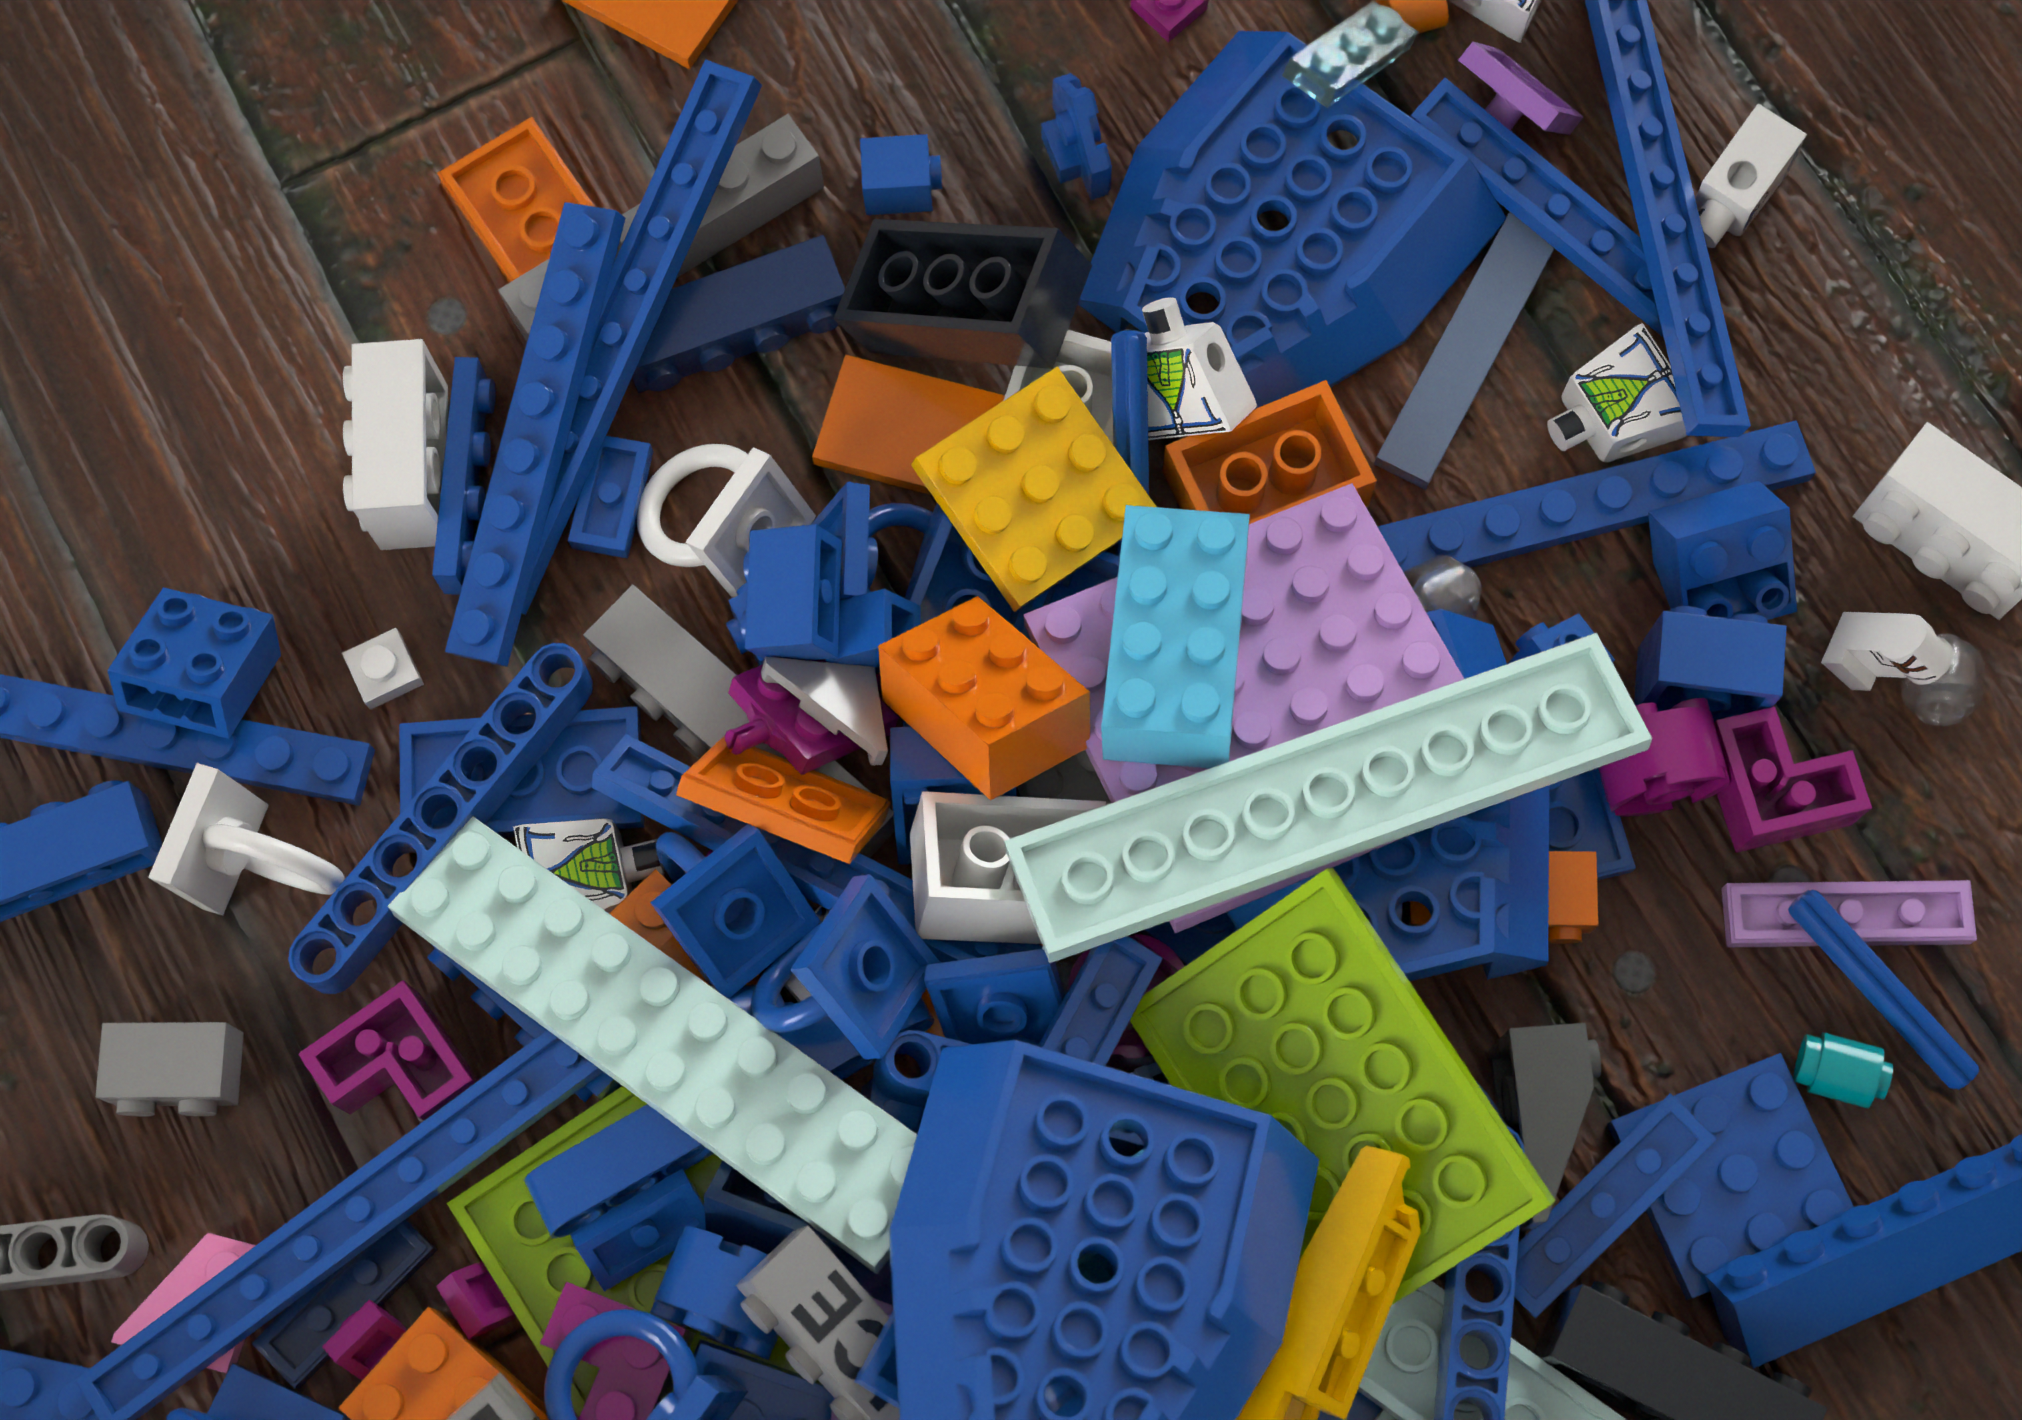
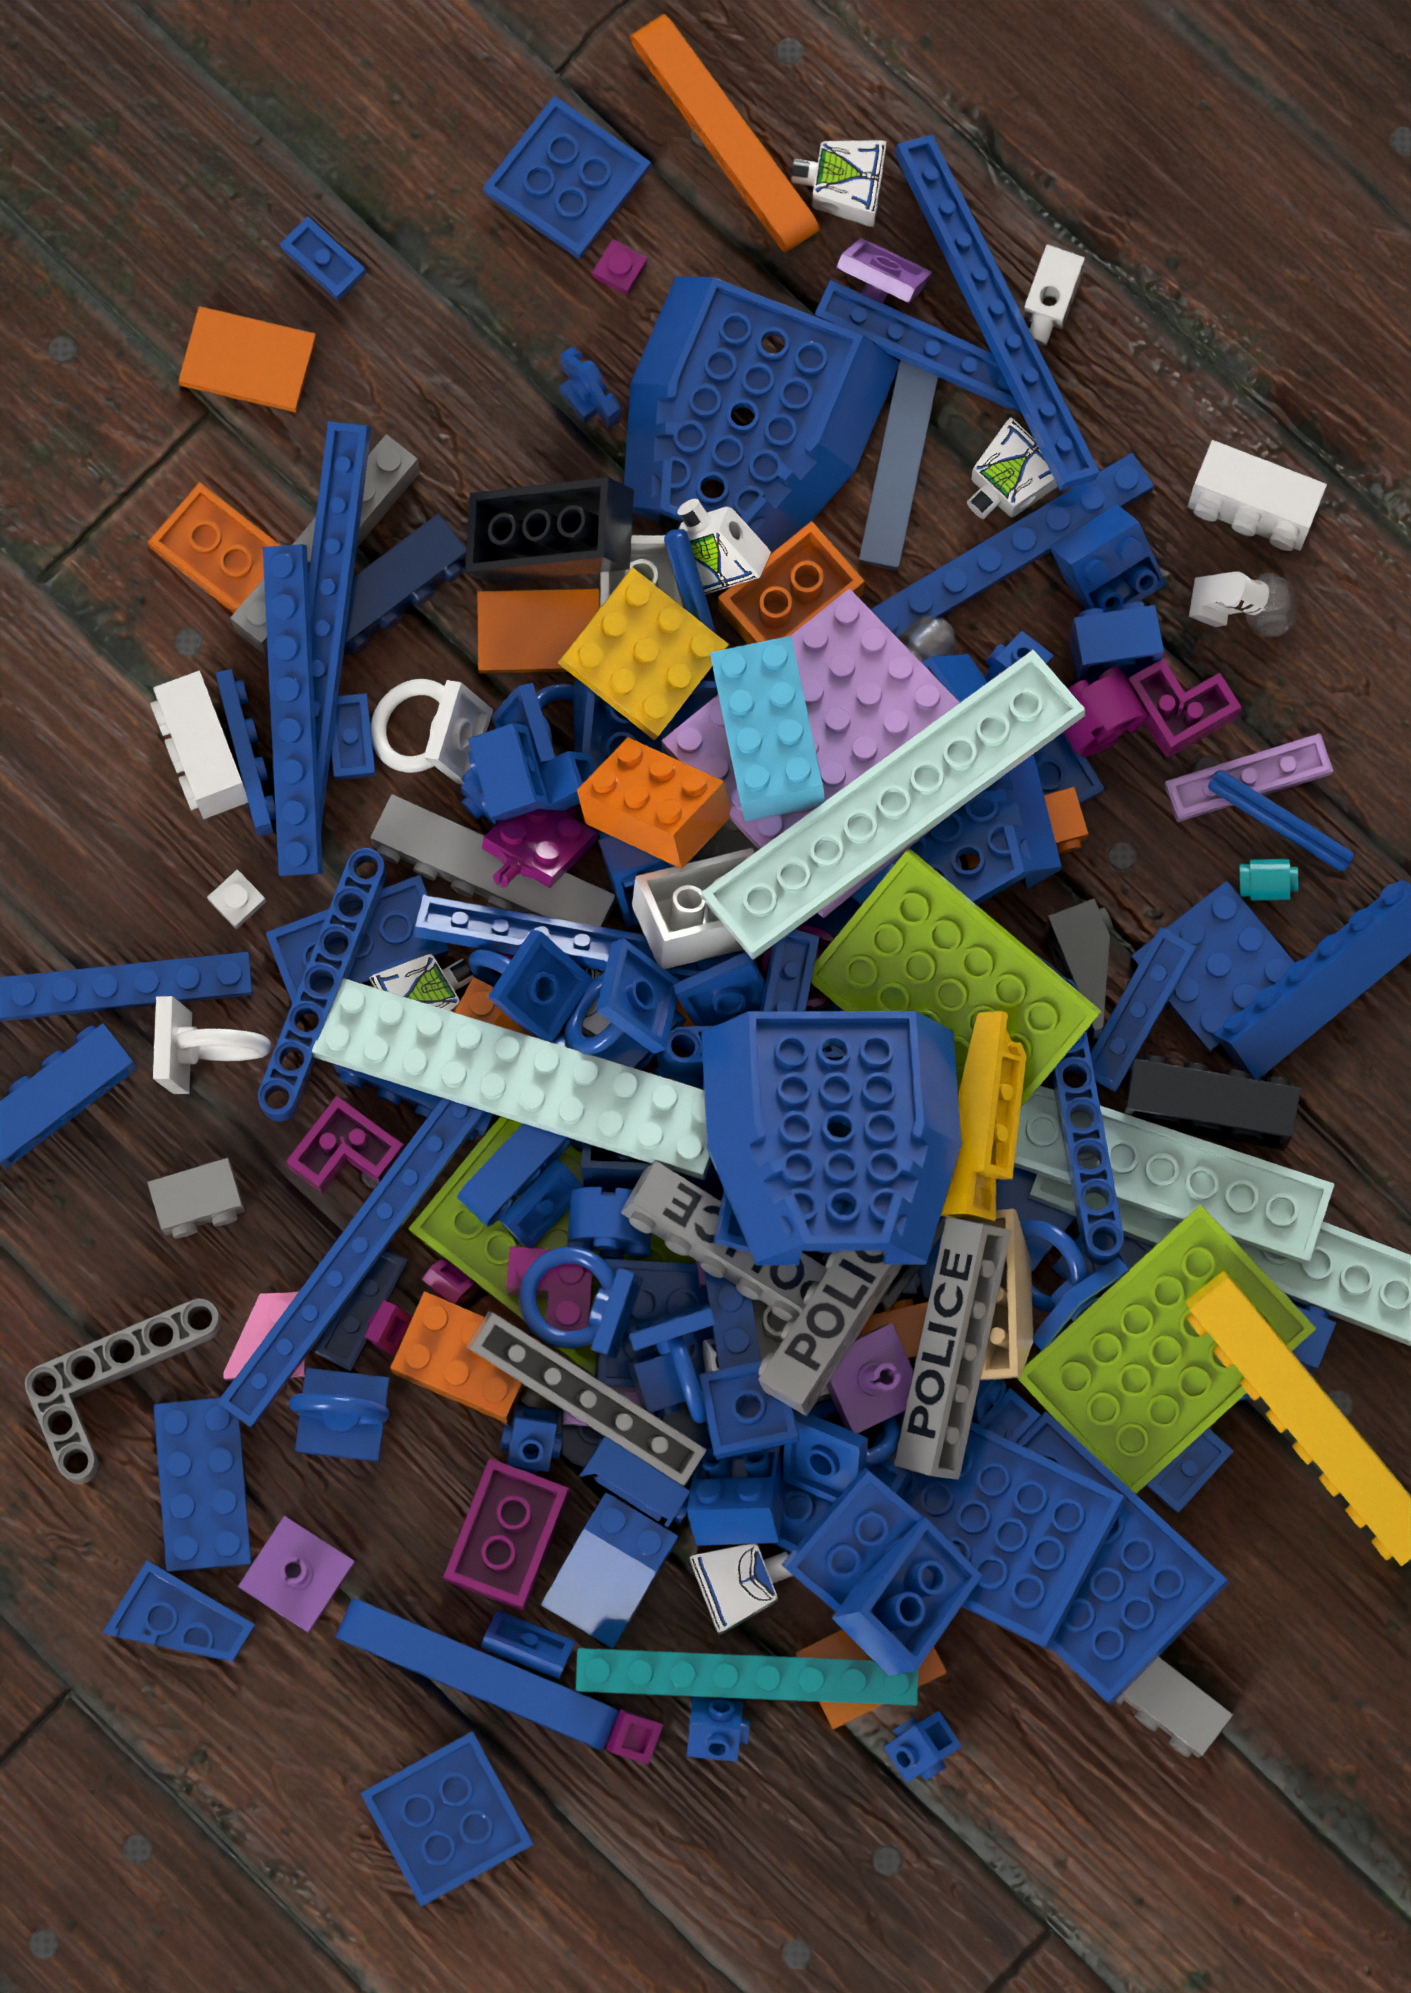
camera: 20 degrees left, 5 degrees up
(195, 662) = (117, 932): blue brick -> none
(778, 799) = (556, 909): orange tile -> none
(837, 697) = (557, 830): light grey tile -> none
(898, 174) = (472, 452): blue brick -> none
(1350, 53) = (761, 281): clear light blue plate -> none

